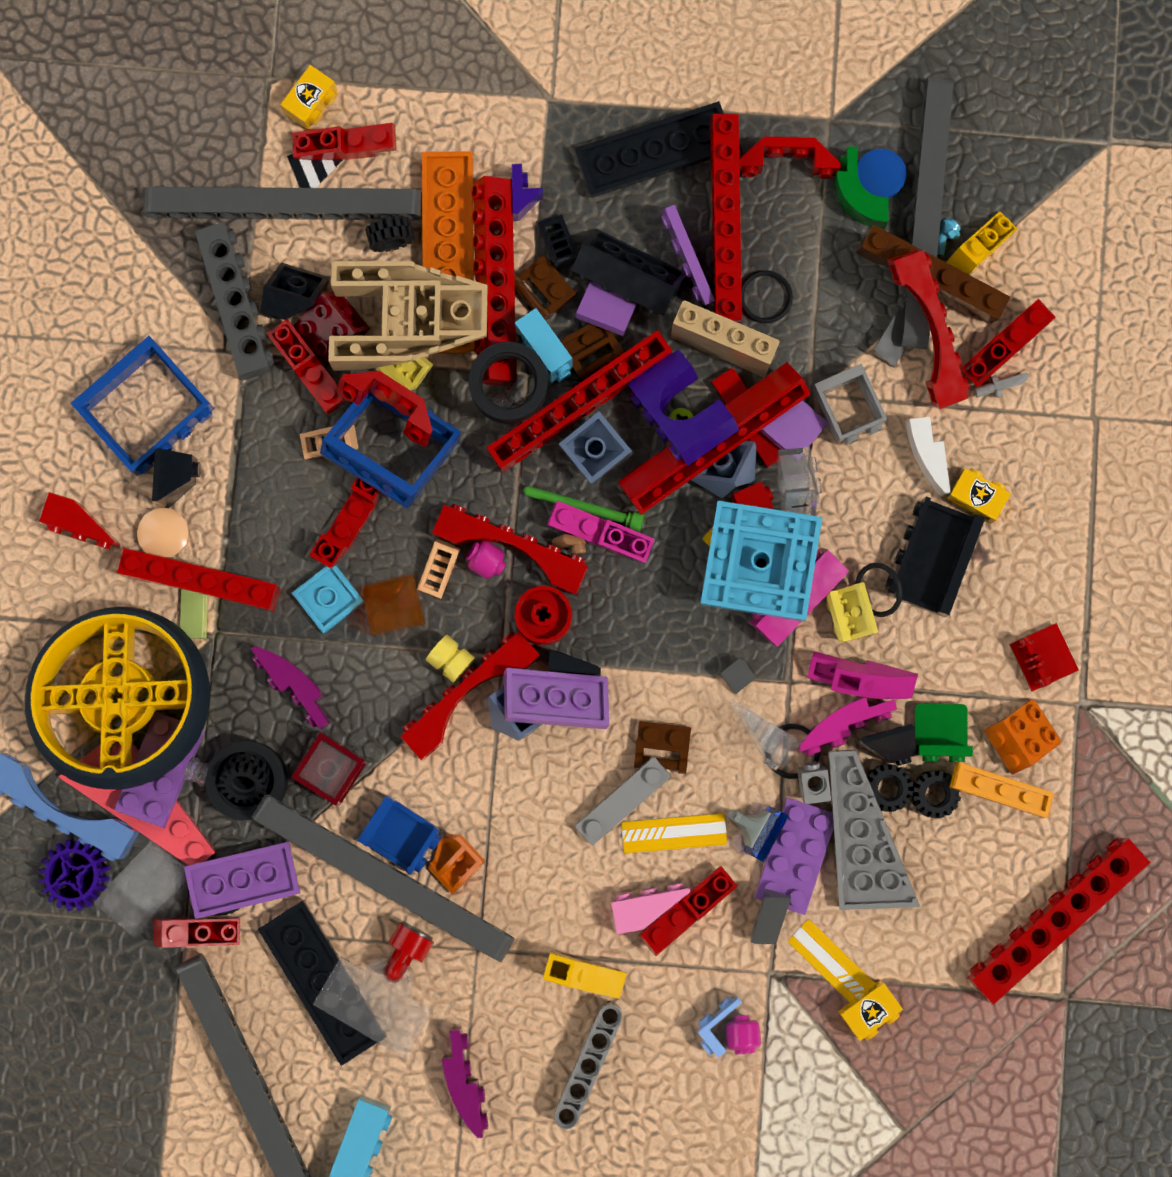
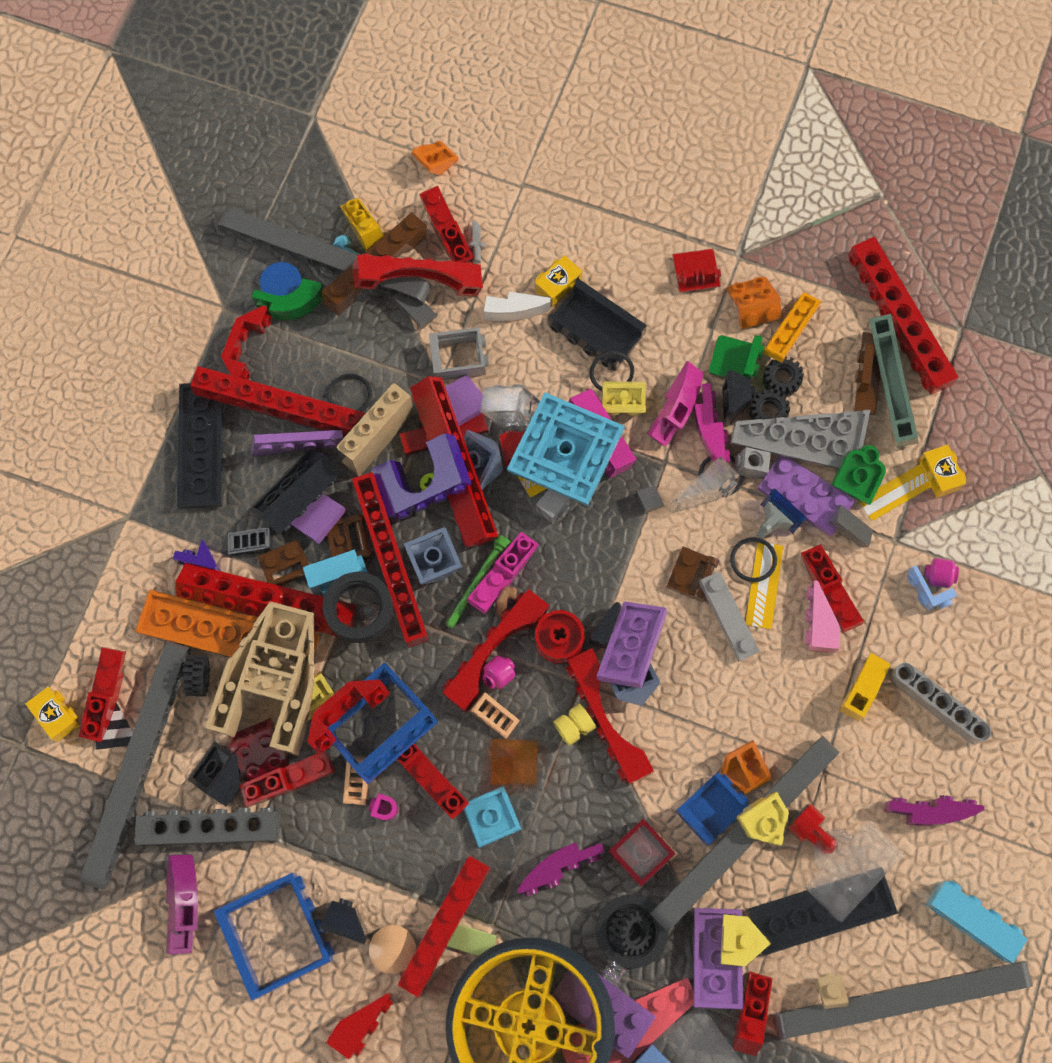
camera: 75 degrees left, 10 degrees down
(150, 300) = (183, 903): none -> magenta slope
(238, 1010) = (832, 991): none -> tan bracket
(264, 899) = (740, 941): none -> light yellow plate
(304, 479) = (383, 808): none -> dark pink plate
(397, 893) = (765, 819): none -> light yellow plate
(677, 823) = (750, 579): none -> black tyre
(694, 566) = (552, 506): none -> light grey brick
(837, 913) = (860, 474): none -> green plate
(963, 929) = (893, 381): none -> sand green arch
(972, 896) = (867, 376): none -> reddish brown bracket
(1097, 302) = (435, 157): none -> orange slope

